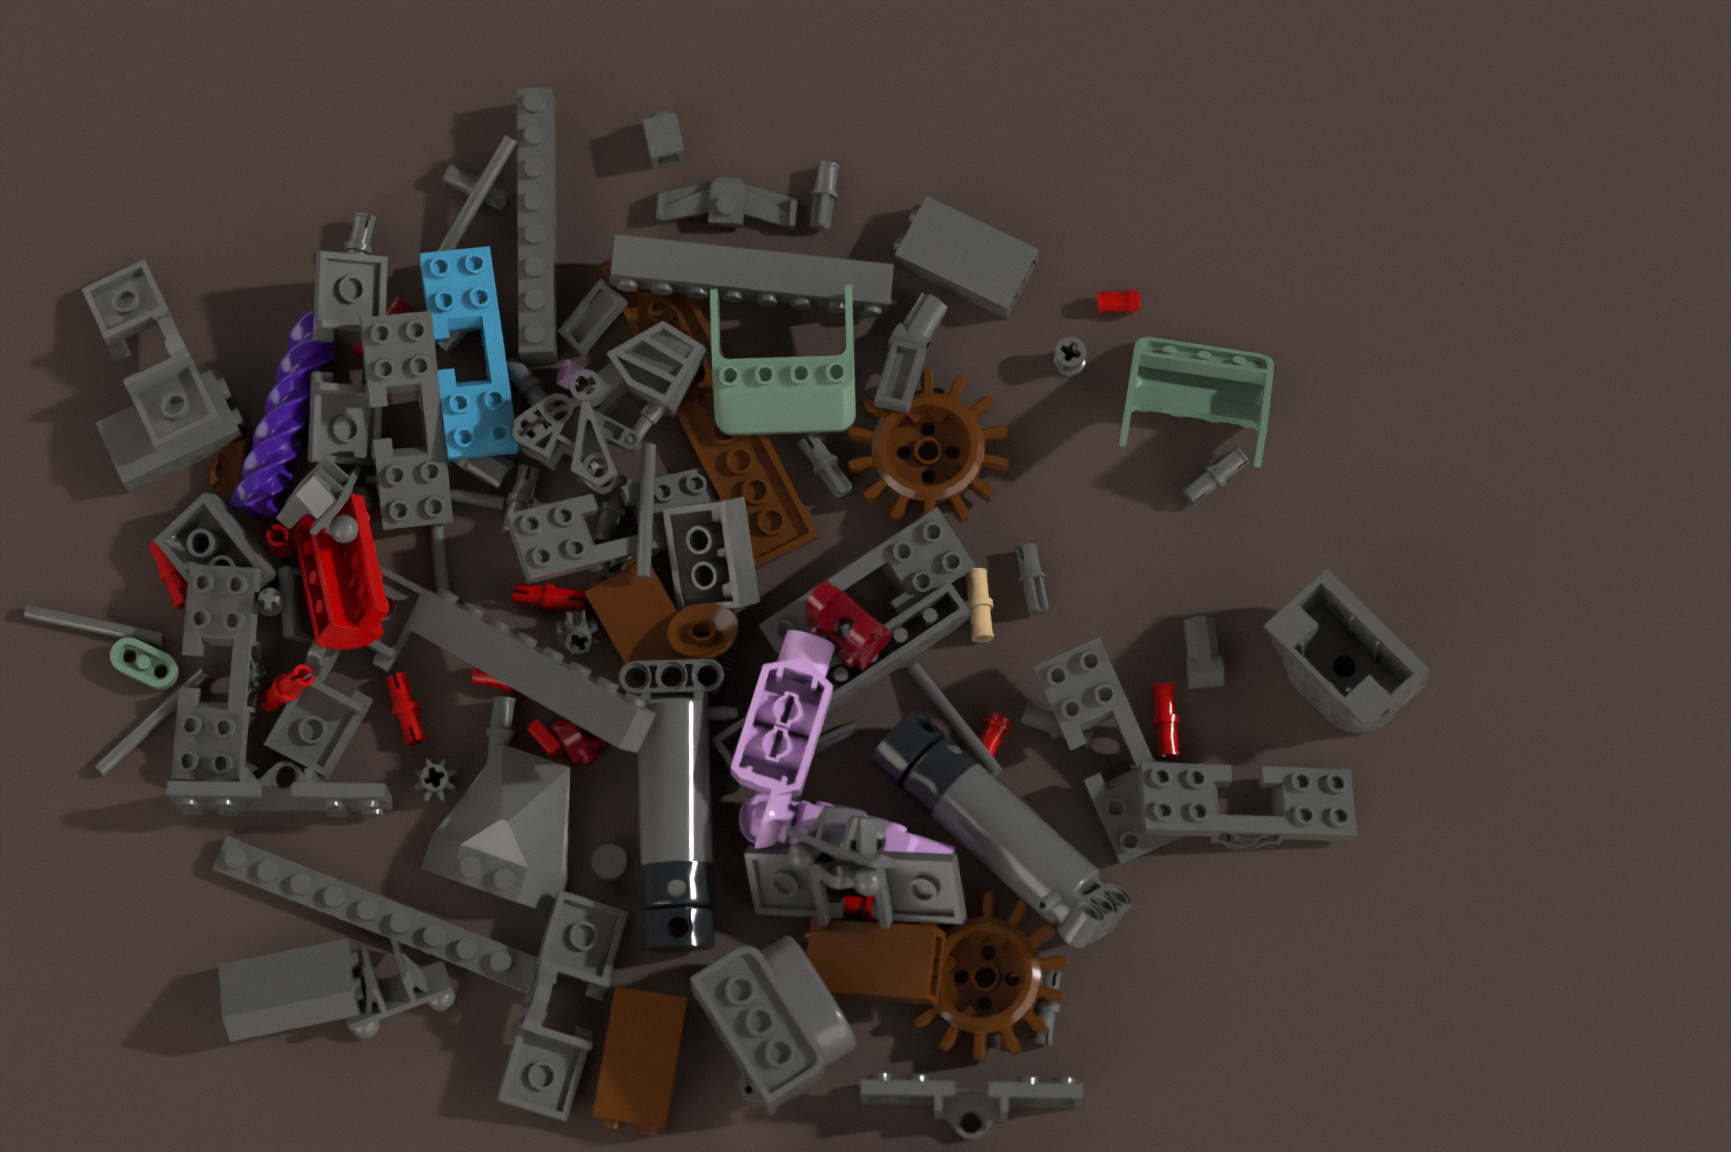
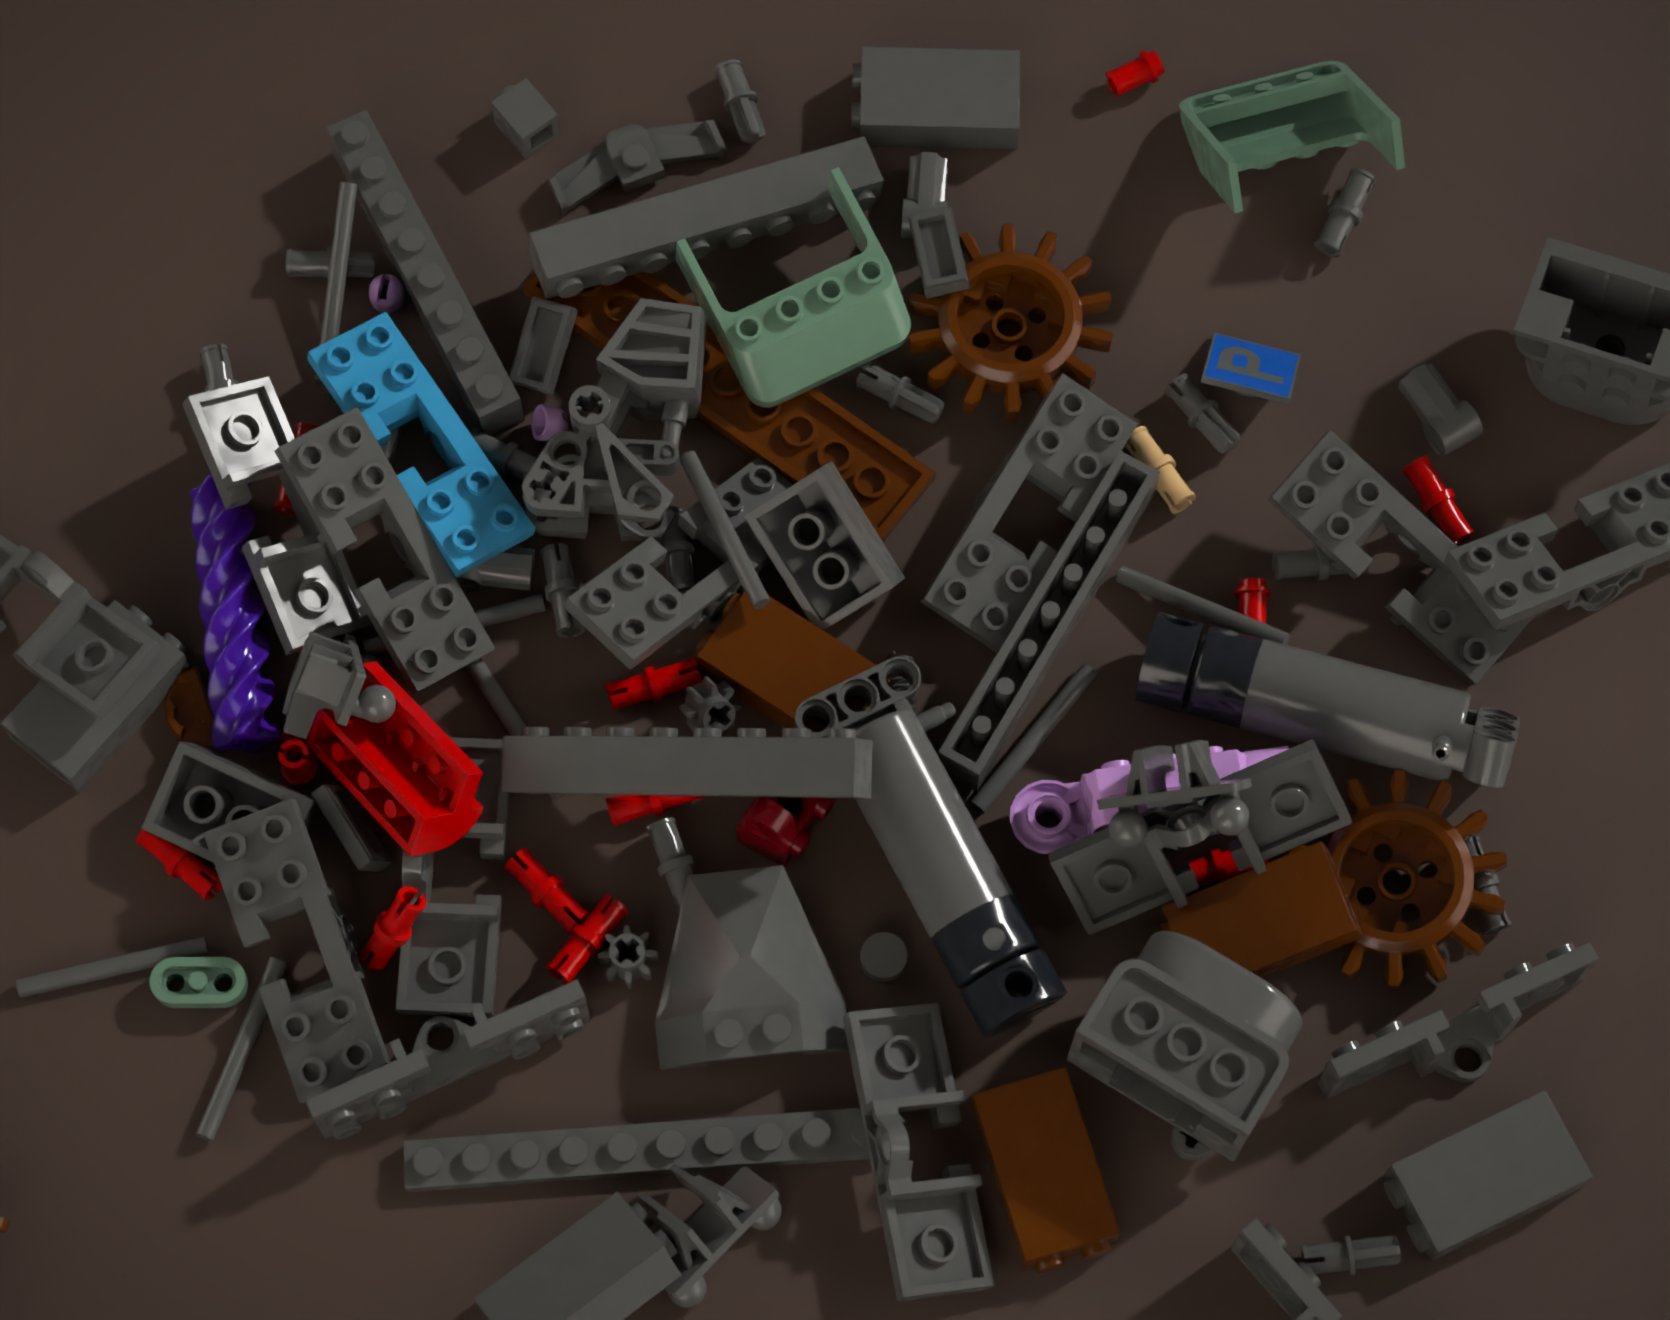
camera: 30 degrees left, 5 degrees down
(271, 602) = (324, 836): dark grey axle -> none
(415, 755) = (587, 939): none -> red pin
(510, 231) = (395, 293): none -> lavender hinge
(545, 739) = (735, 848): red tile -> none
(703, 631) = (864, 632): reddish brown dish -> none
(783, 731) = (1026, 700): lavender brick -> none
(832, 608) = (1013, 533): dark red brick -> none
(1063, 349) = (1123, 148): dark grey bush -> none
(1082, 561) = (1251, 368): none -> piece

